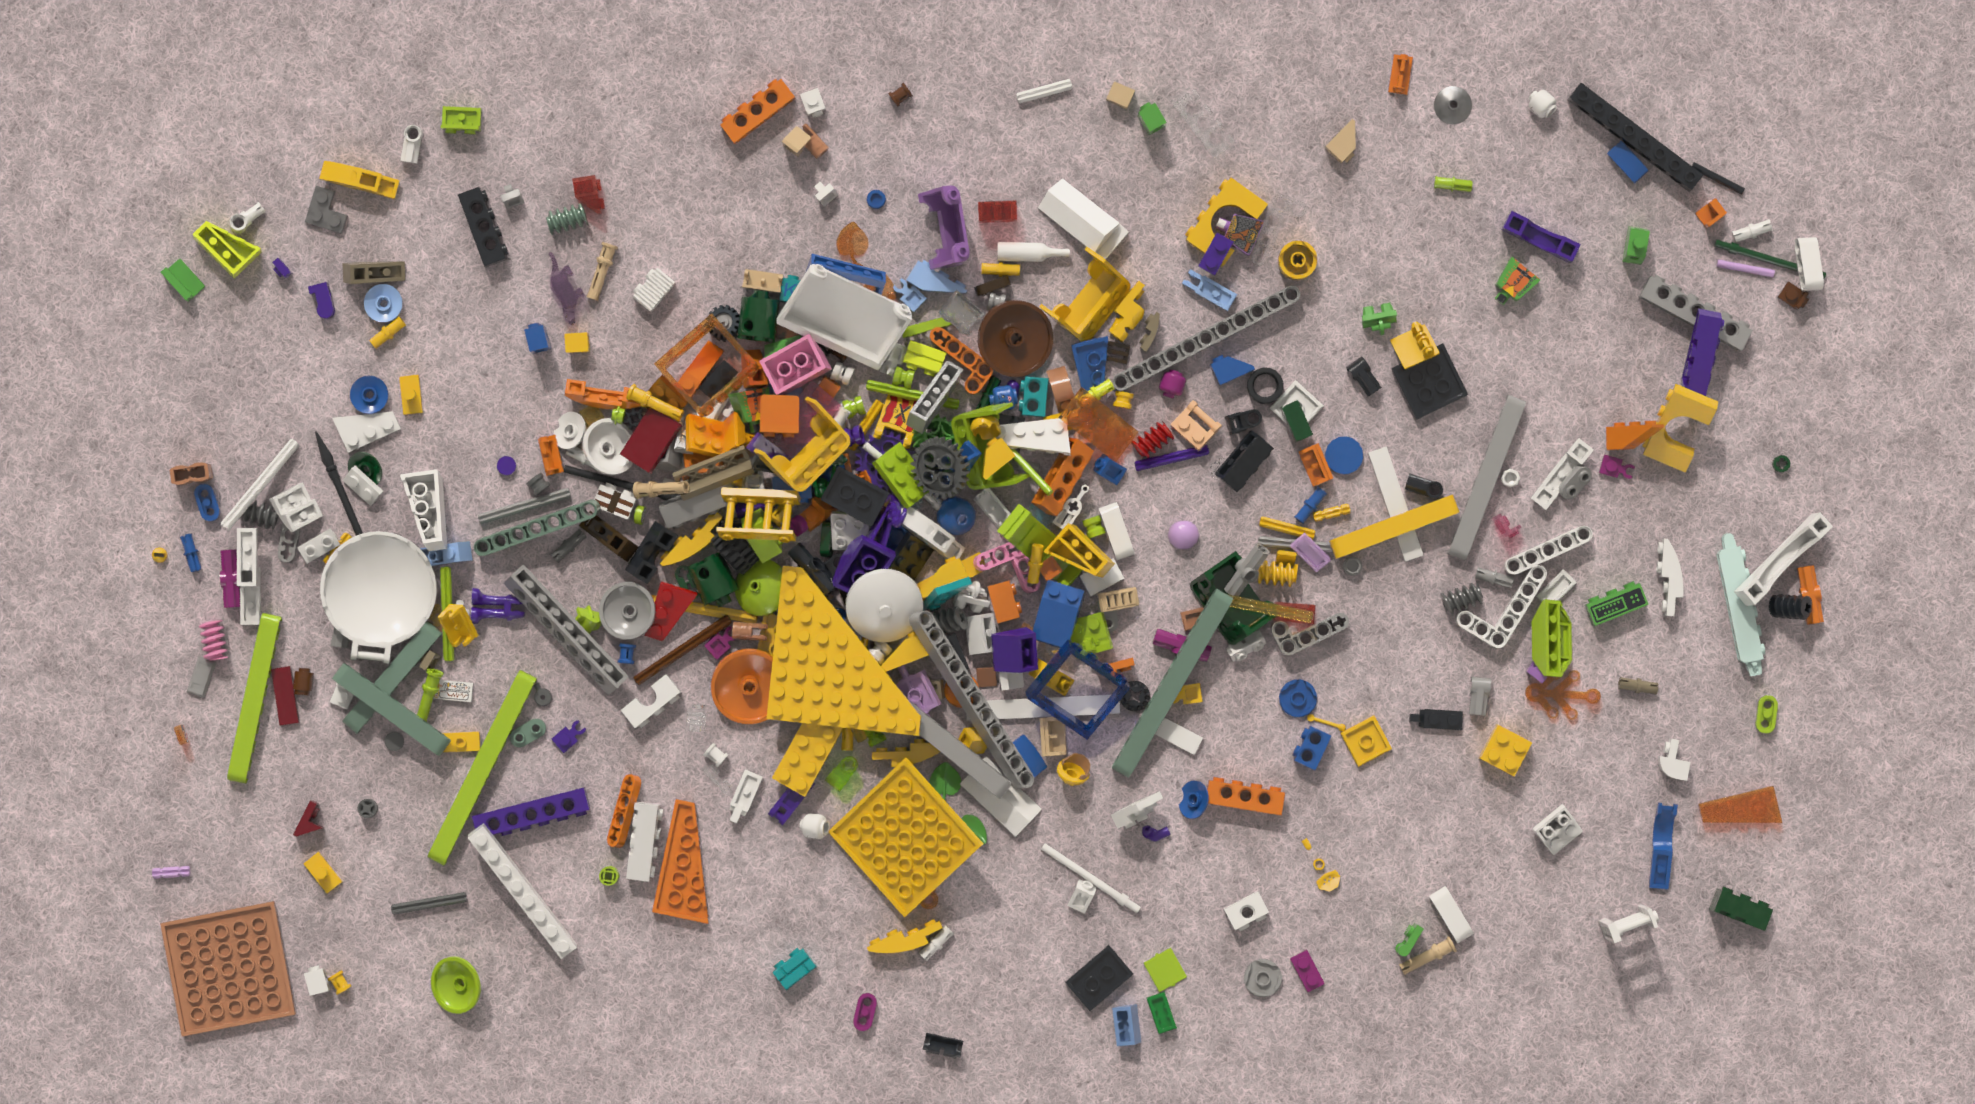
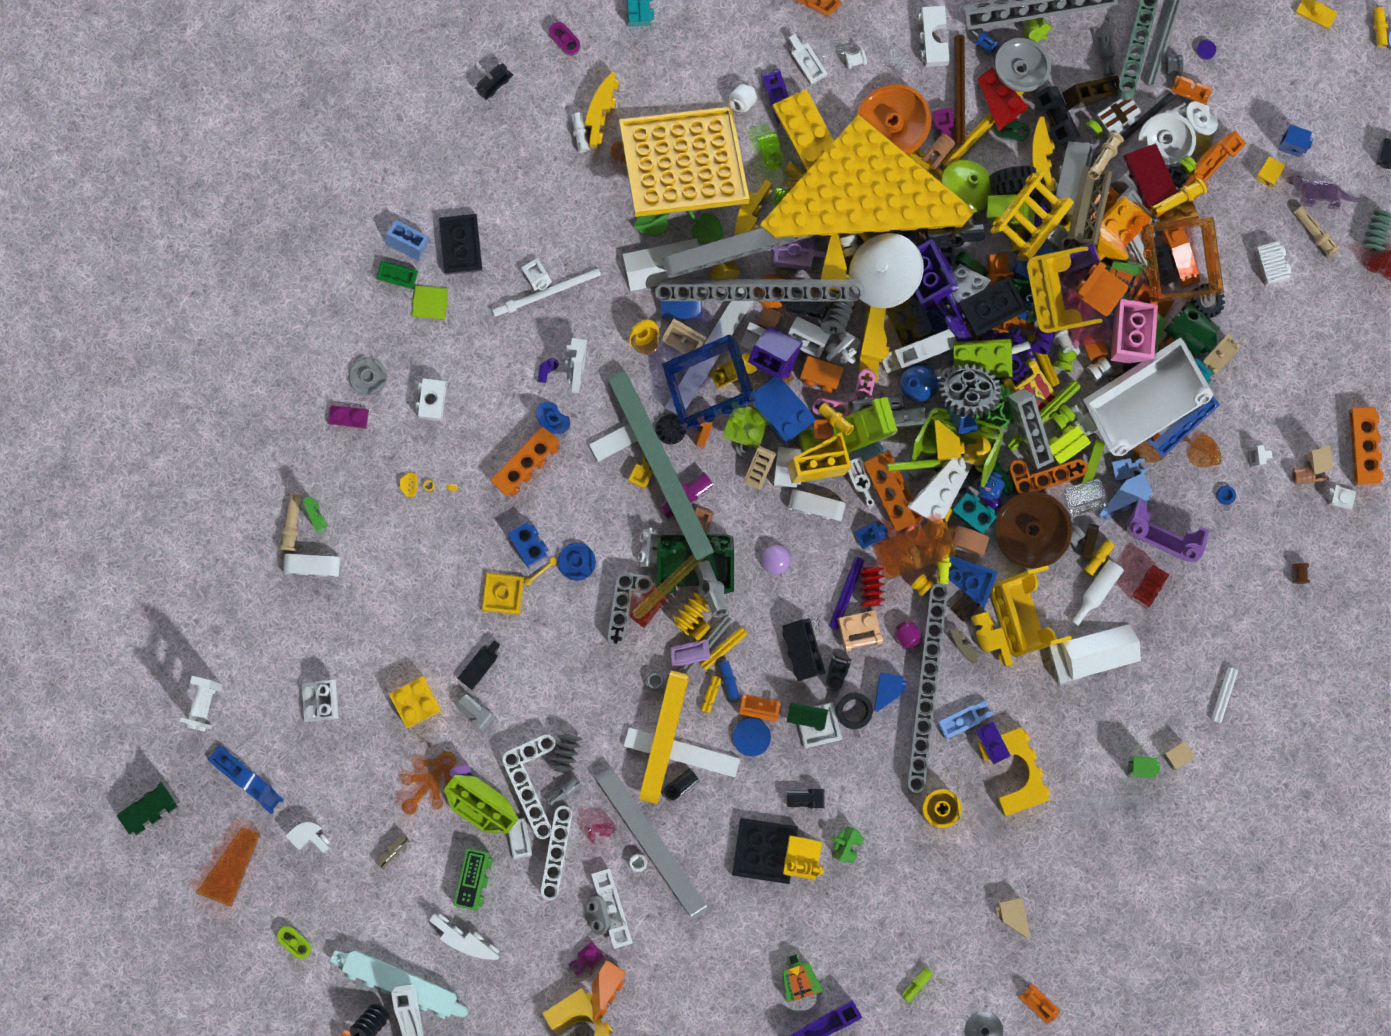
camera: 120 degrees right, 5 degrees down
(713, 580) = (999, 149): dark green cylinder -> none
(798, 525) = (999, 248): magenta tile -> none
(944, 593) = (862, 326): teal wing -> none
(990, 529) = (858, 405): none -> dark grey pin
(1094, 526) = (833, 489): lime wheel -> none
(1241, 231) = (996, 778): torso -> none

